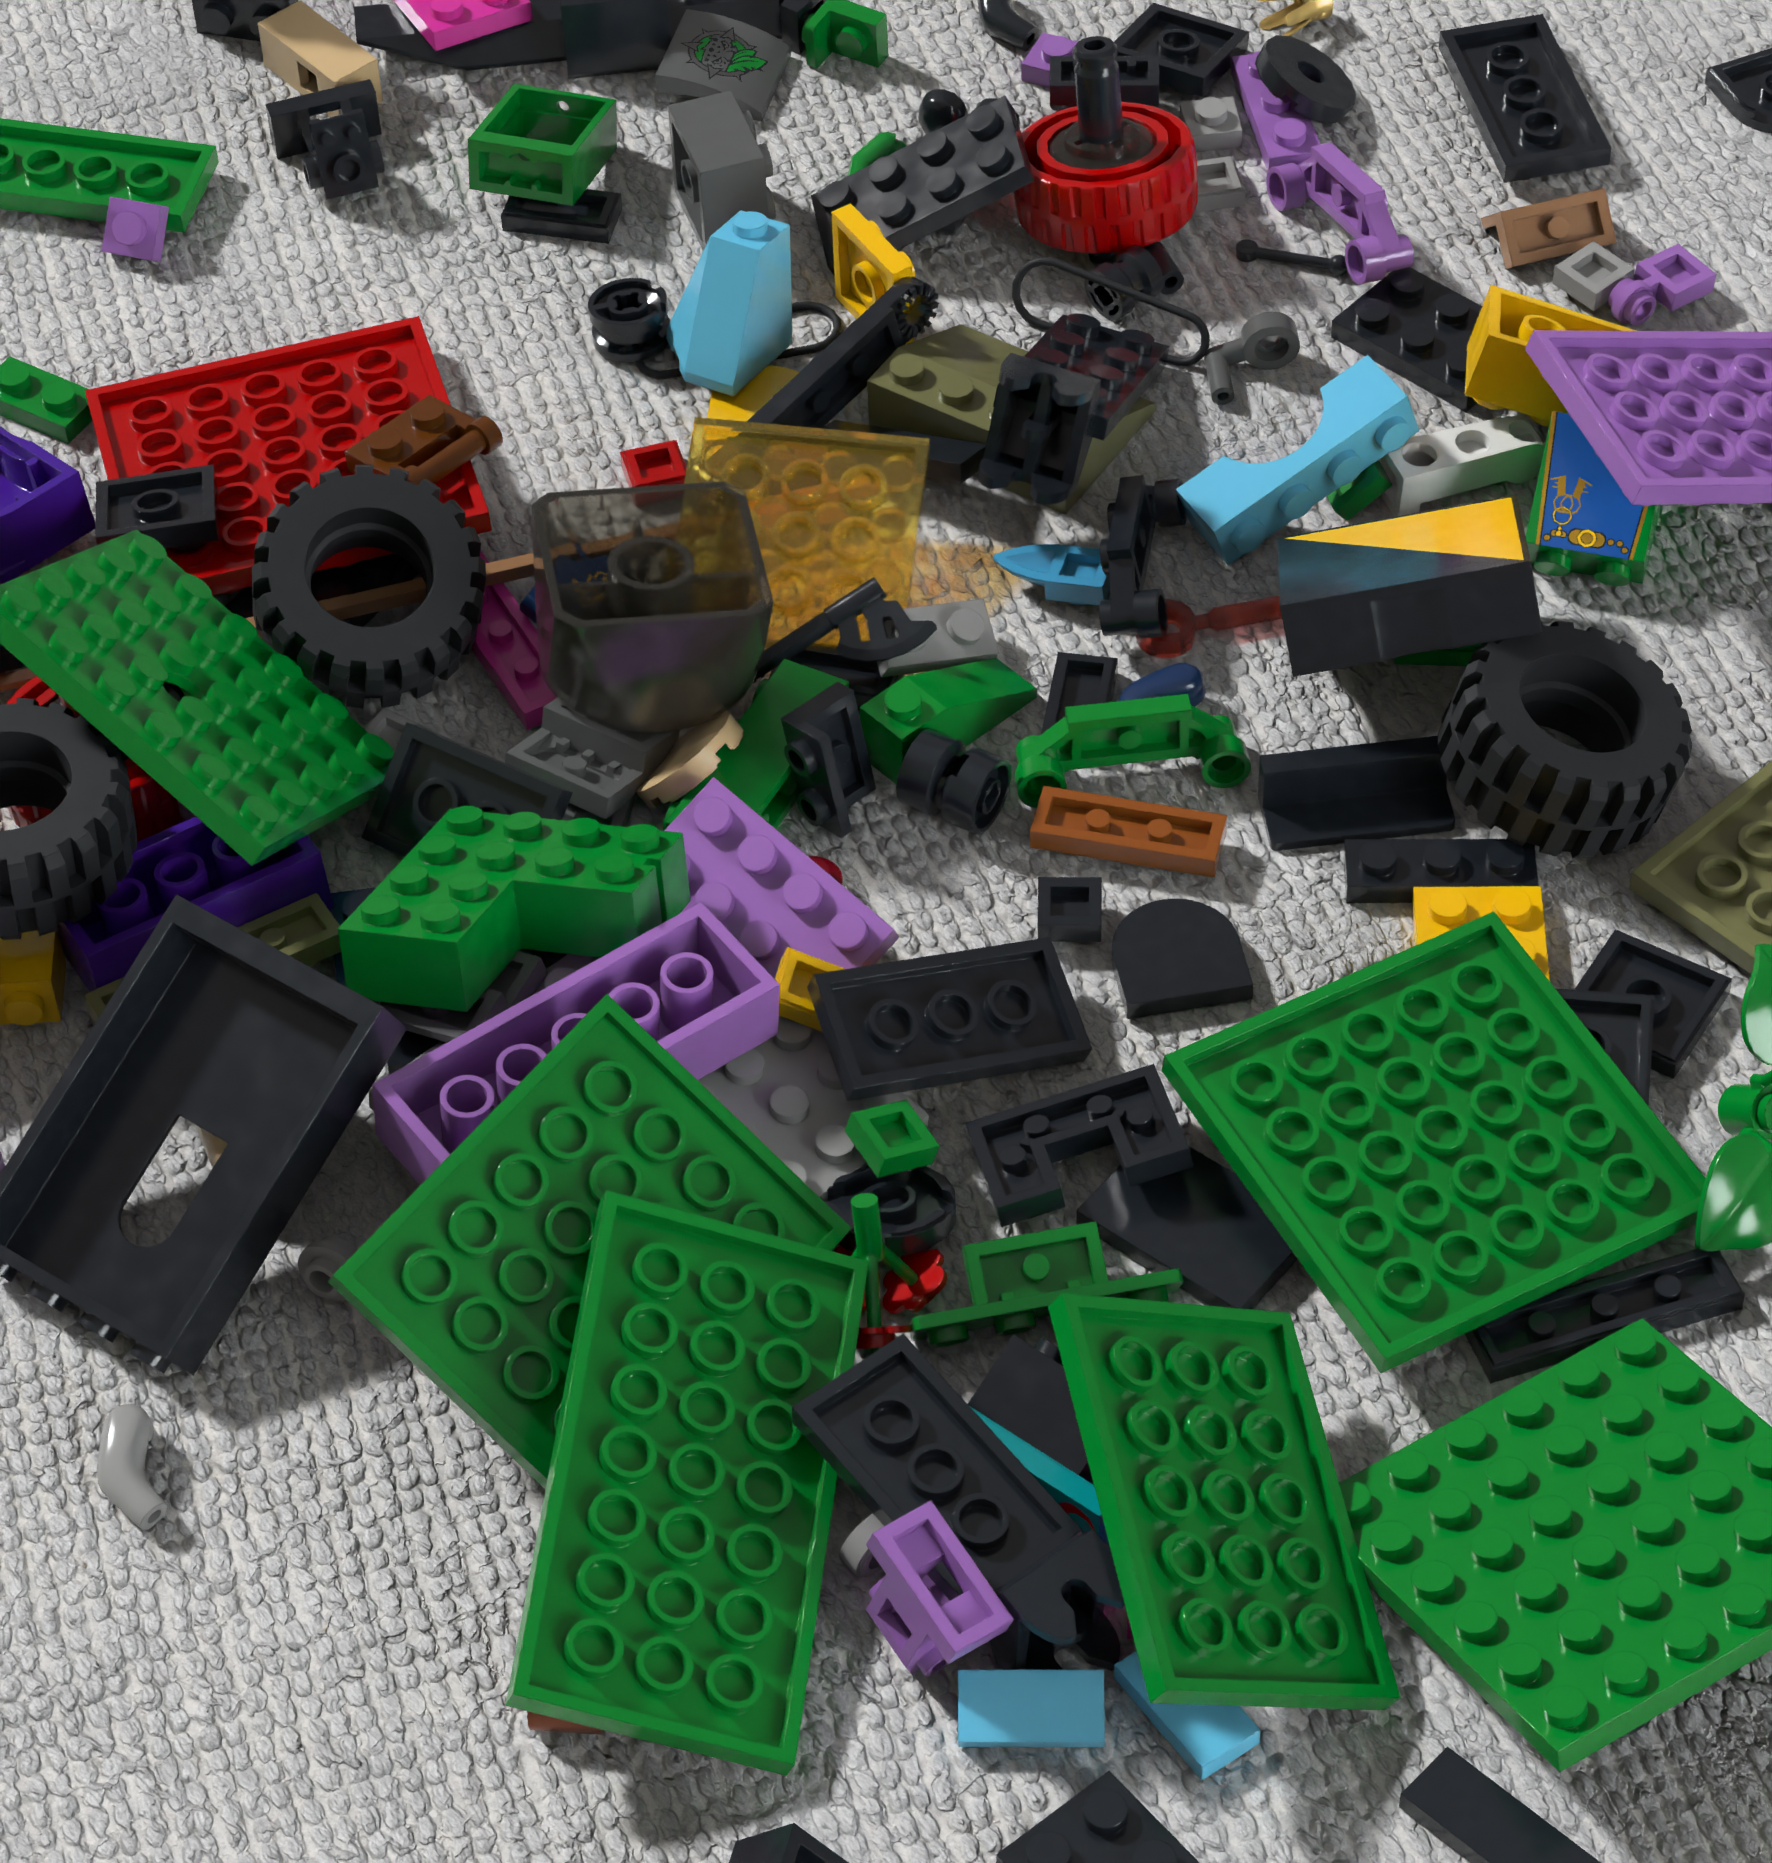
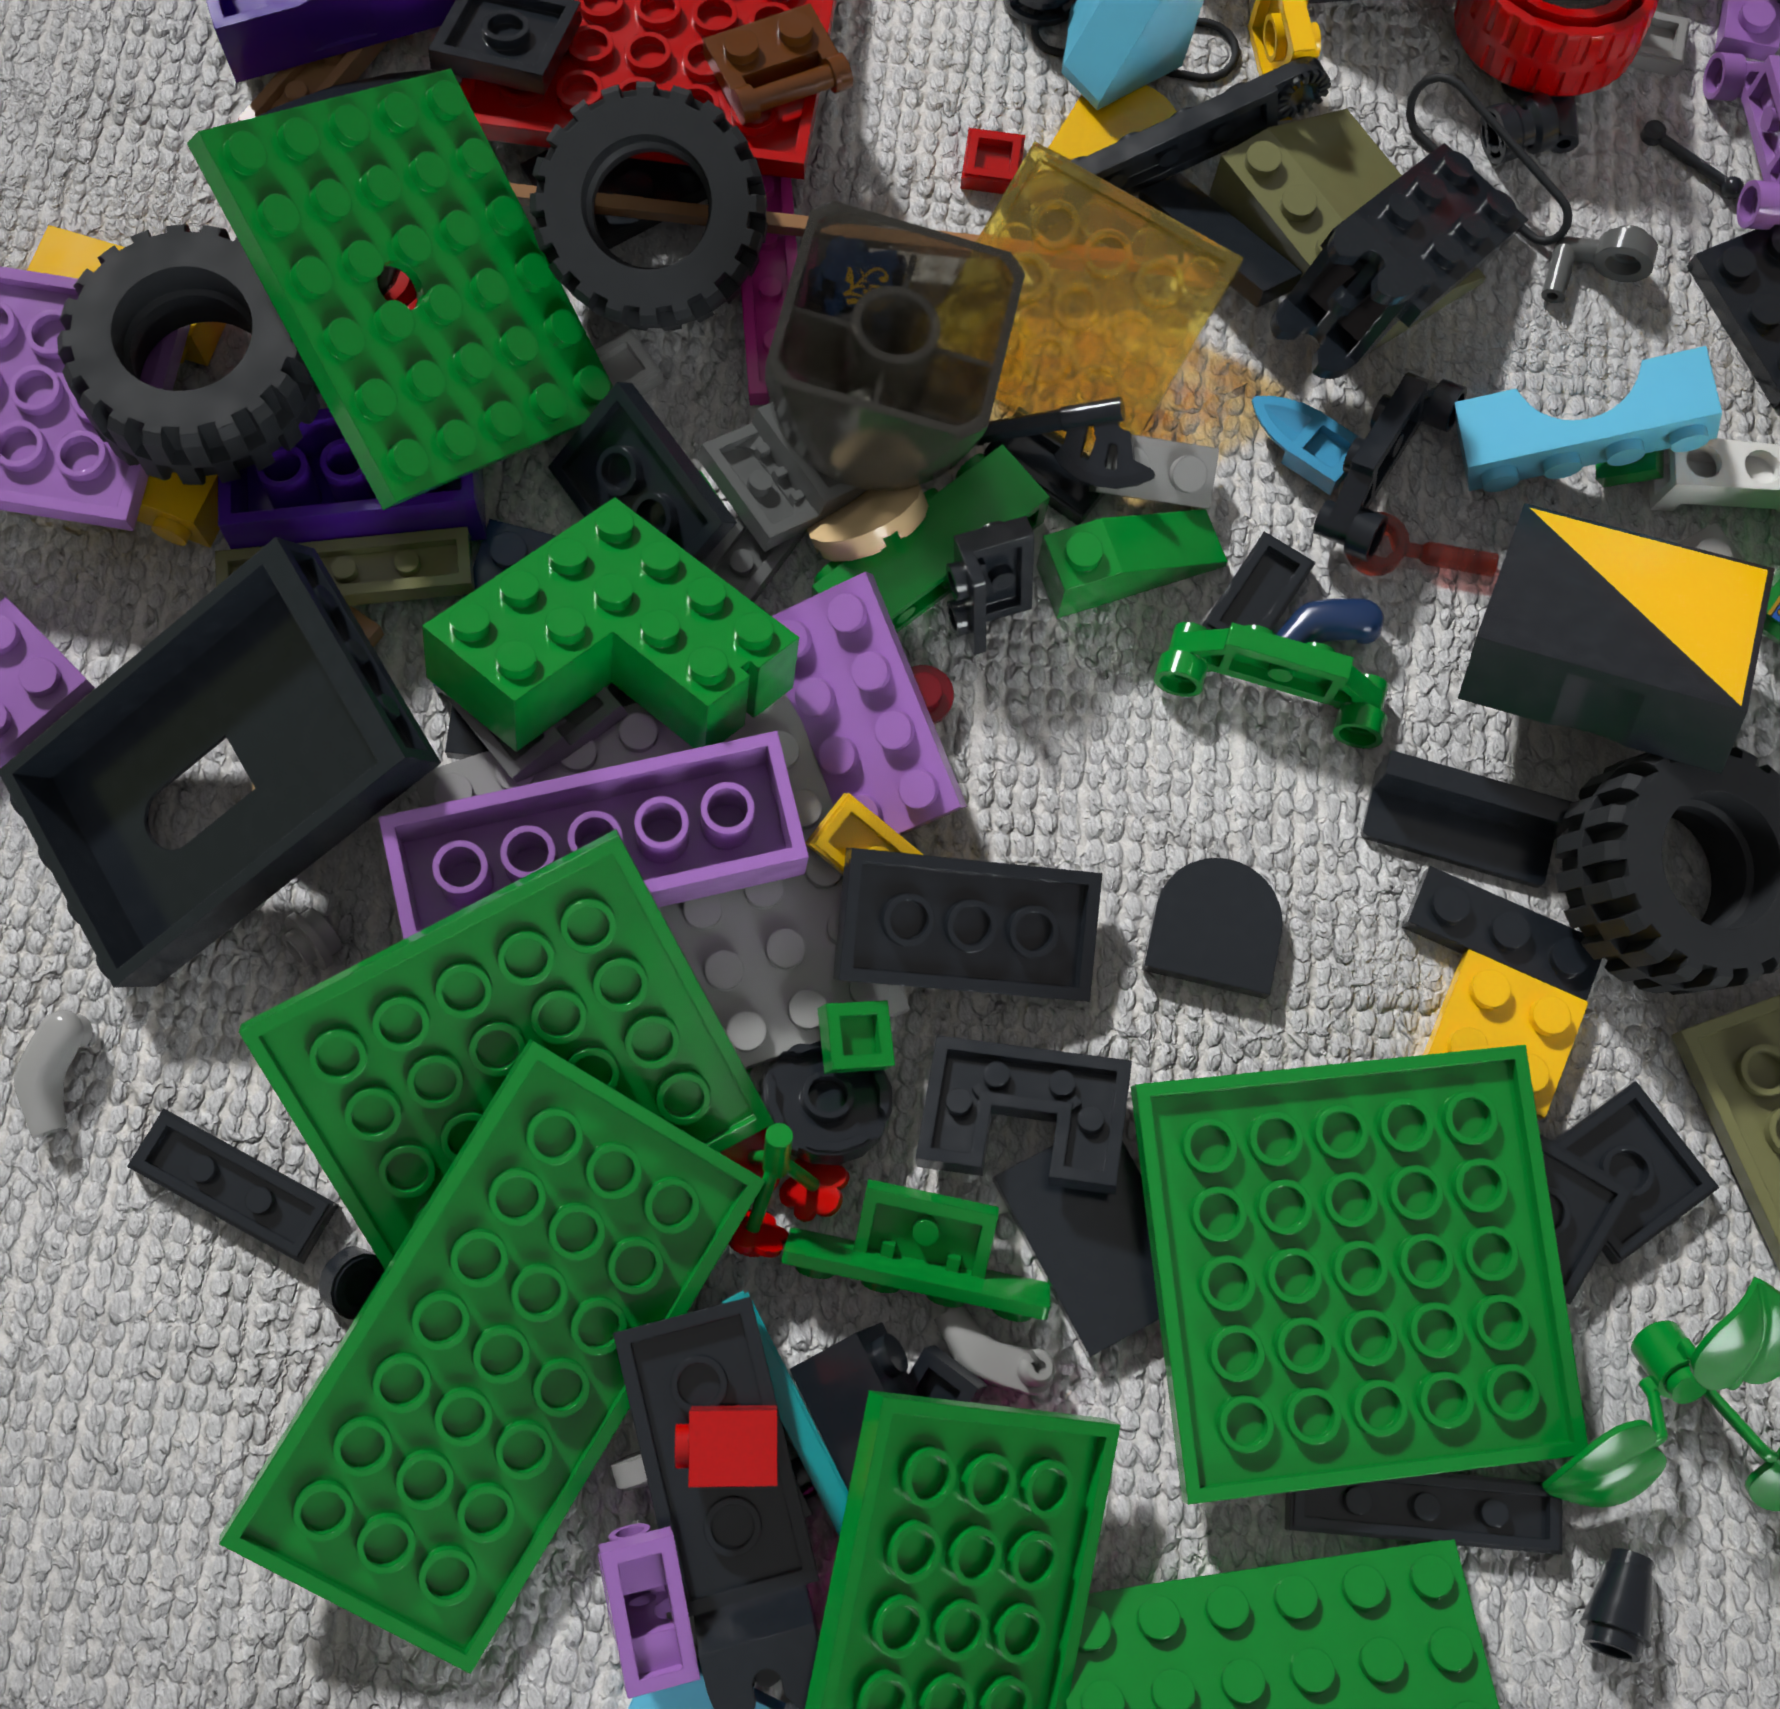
camera: 15 degrees right, 25 degrees up
(356, 1493) = (233, 1186): none -> black tile
(513, 1512) = (349, 1280): none -> black tile
(946, 778) = (1083, 630): black wheel -> none
(947, 1433) = (728, 1446): none -> red brick
(1070, 909) = (1141, 832): black plate -> none
(1128, 831) = (1235, 767): dark orange plate -> none

